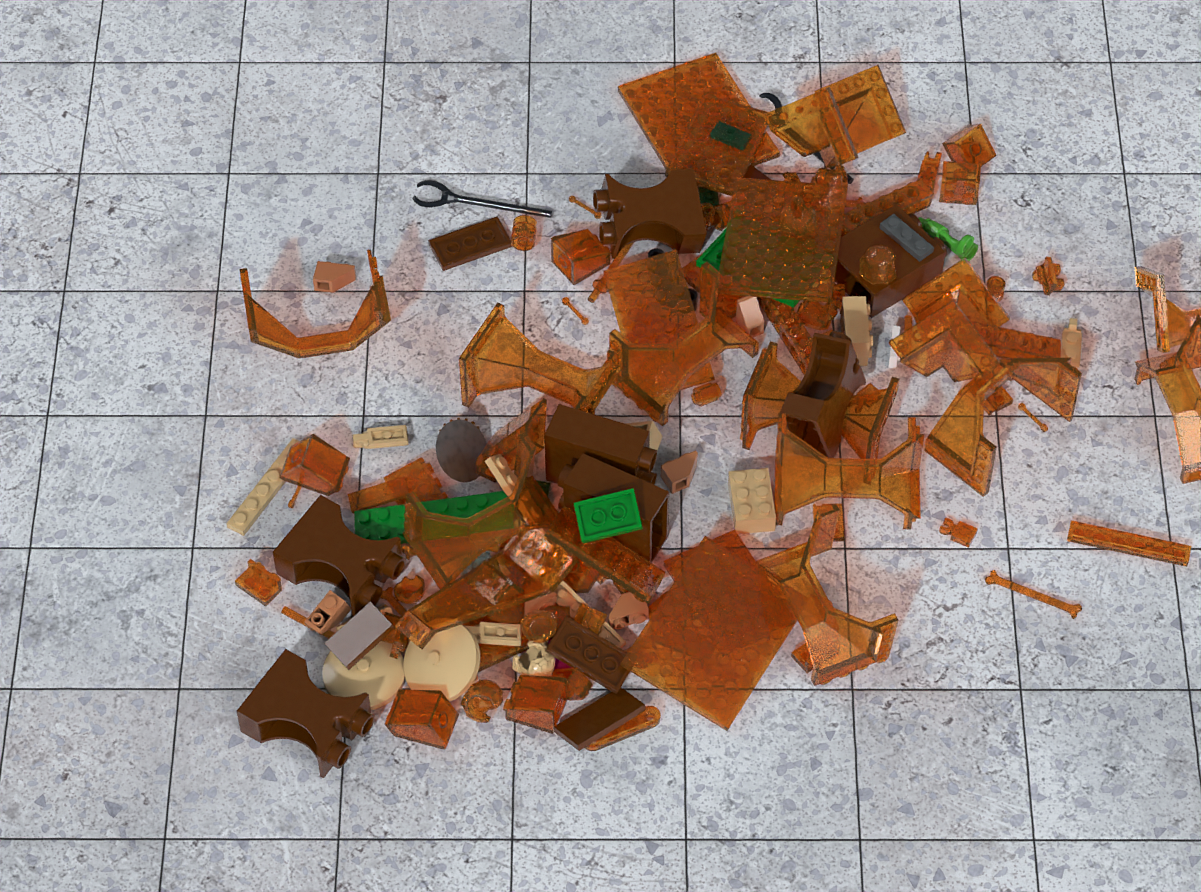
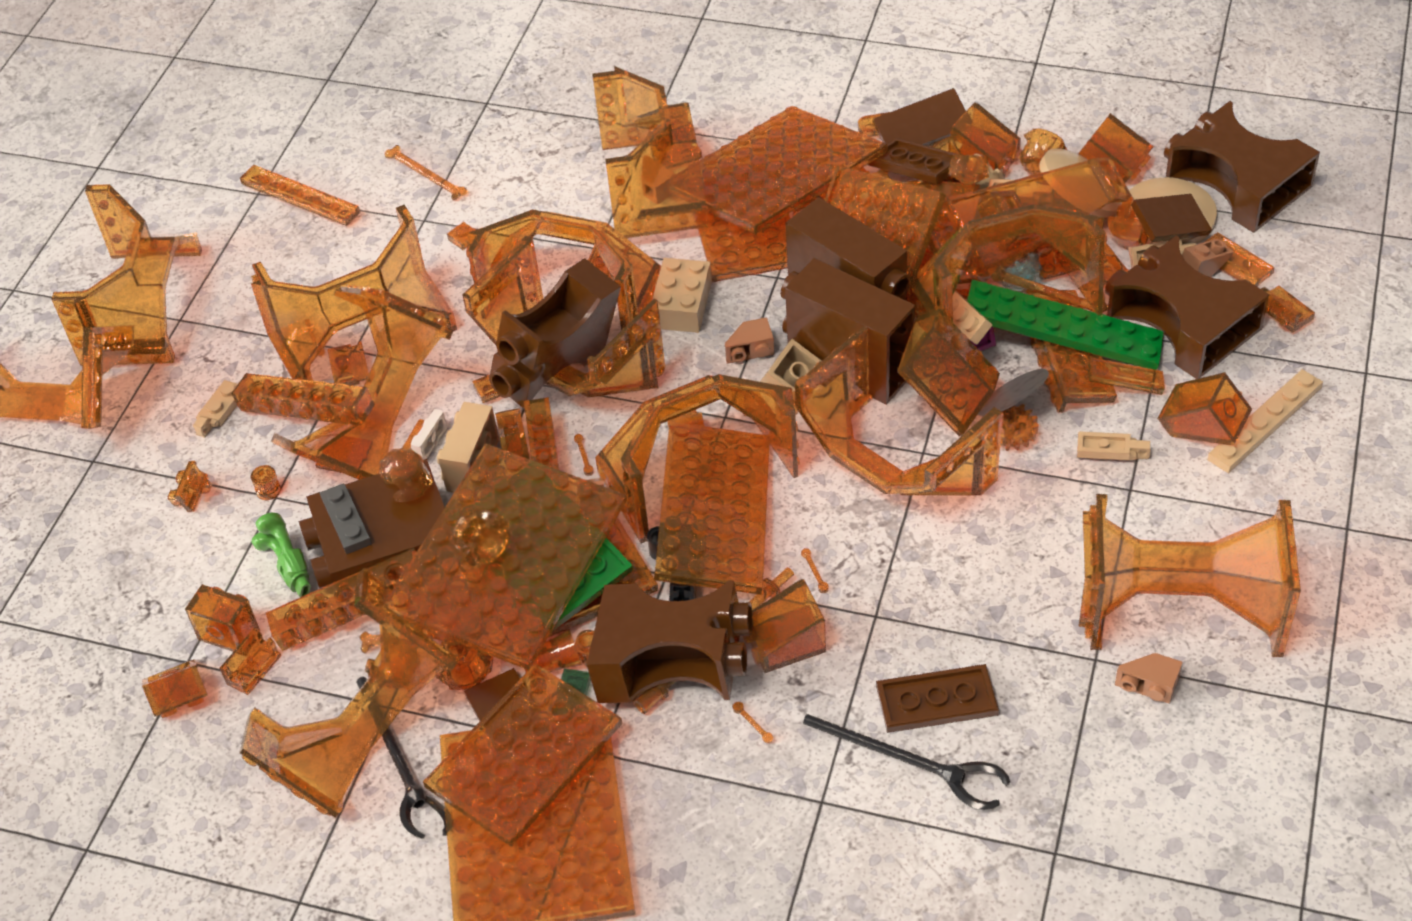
camera: 160 degrees left, 5 degrees down
(299, 633) = (1245, 260): none -> clear orange tile
(523, 233) = (856, 682): clear orange wheel -> none
(608, 515) = (865, 205): green plate -> none
(730, 135) = (502, 748): clear green plate -> none

